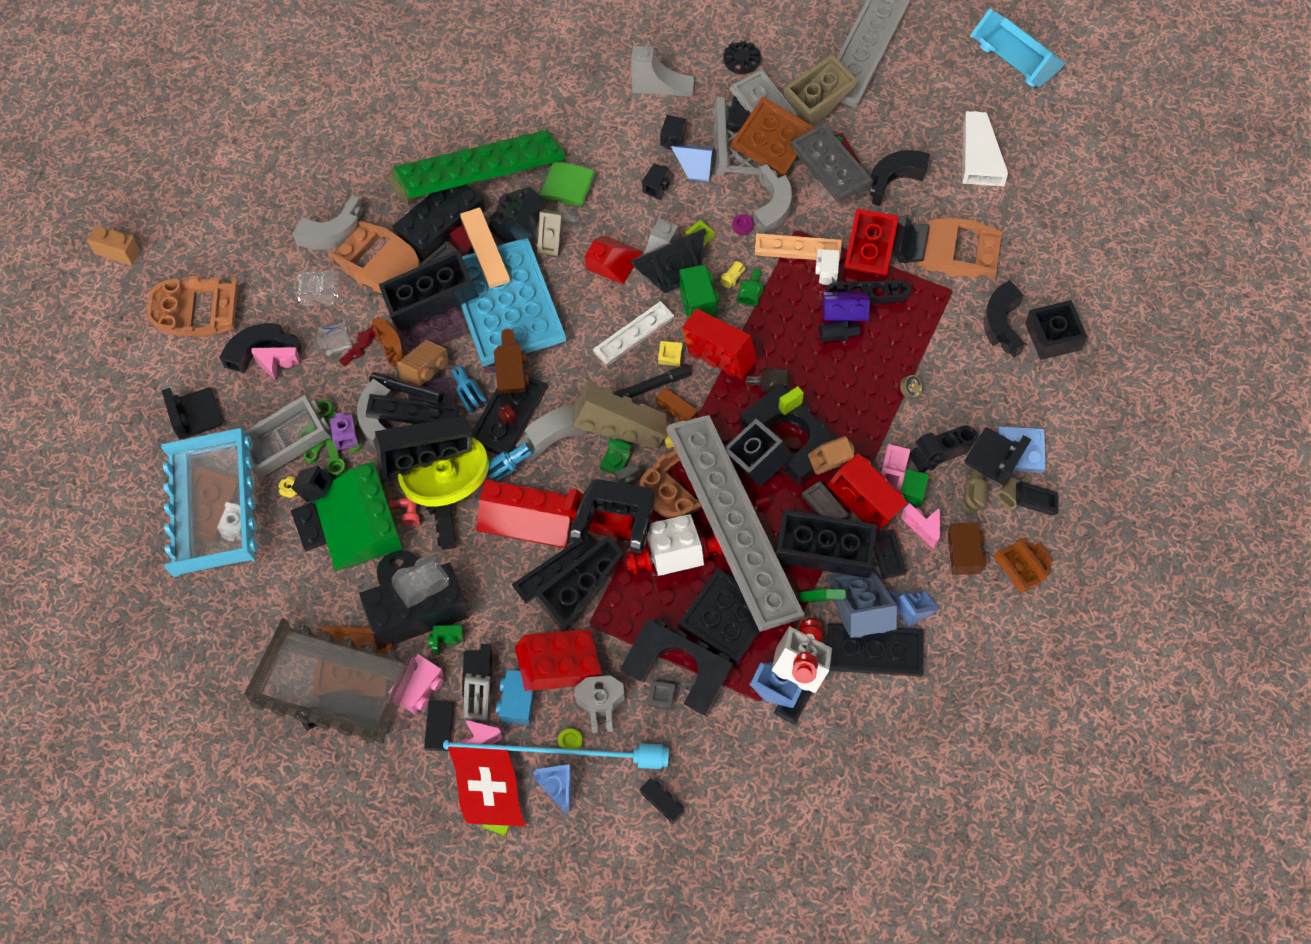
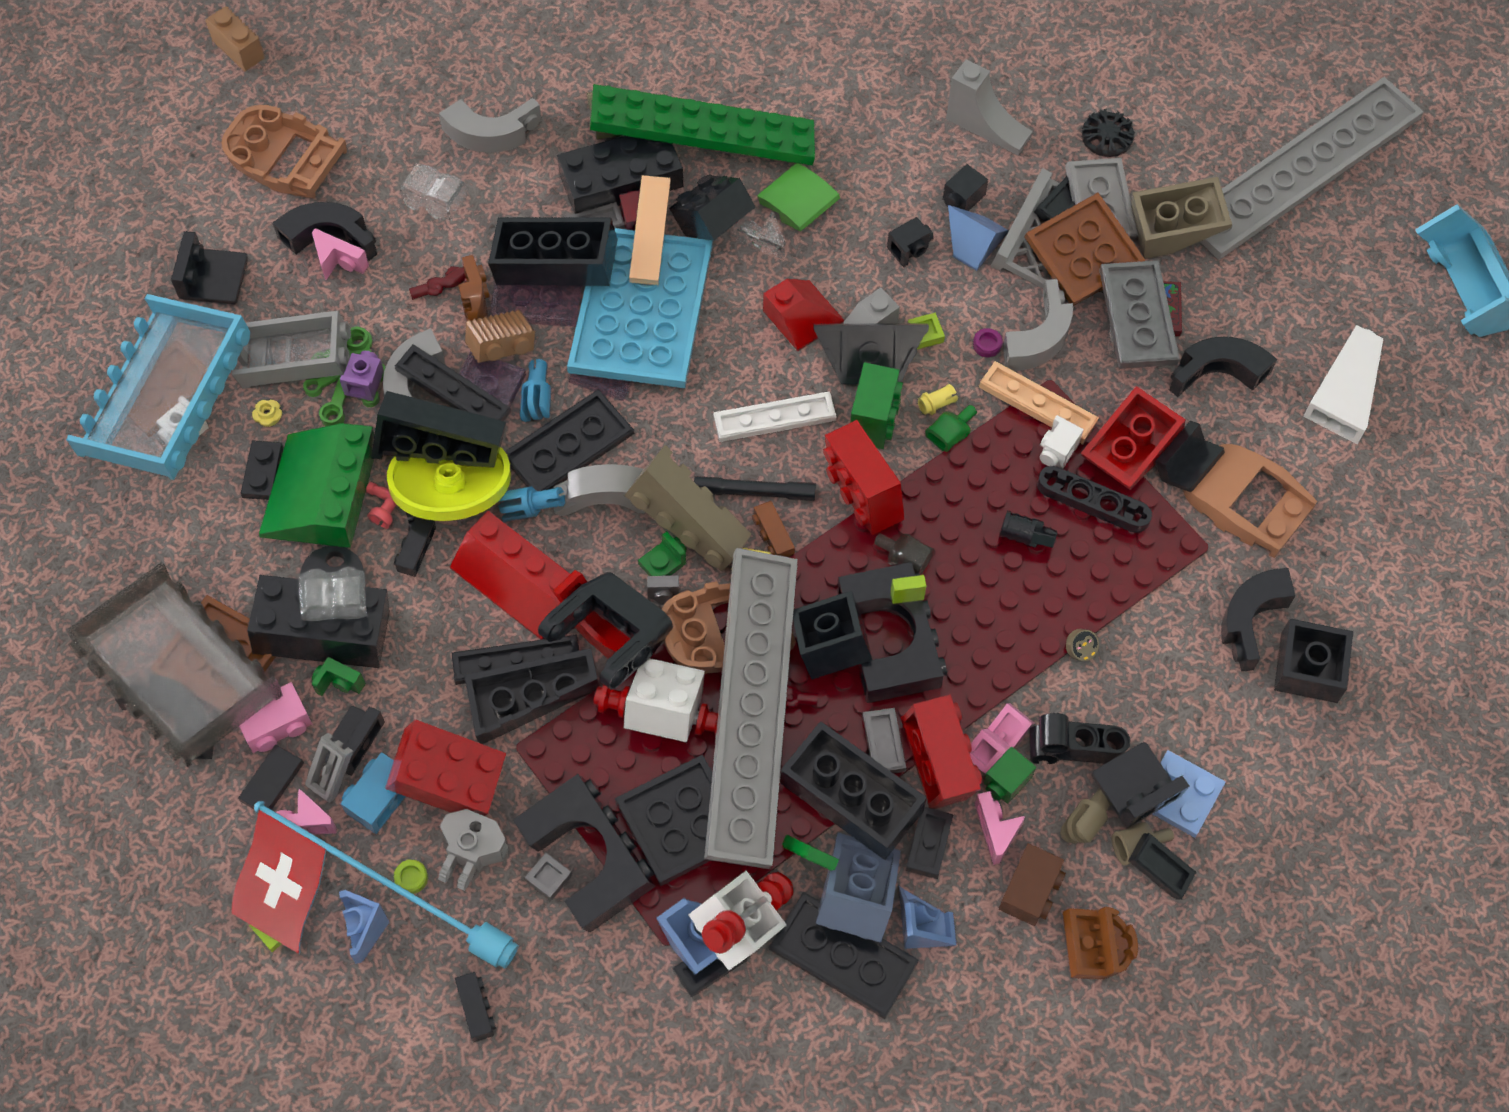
camera: 25 degrees right, 0 degrees up
(312, 483) = (290, 420): black brick -> none
(333, 338) = (416, 259): clear brick -> none
(390, 261) = (531, 197): nougat slope -> none
(427, 394) = (478, 374): black piece -> none
(507, 414) = (561, 444): clear red plate -> none
(509, 365) = (595, 385): reddish brown hinge -> none
(549, 232) = (739, 246): plate -> none
(670, 353) = (803, 461): light yellow plate -> none
(831, 455) = (916, 681): medium nougat brick -> none
(845, 306) = (1051, 503): dark purple brick -> none

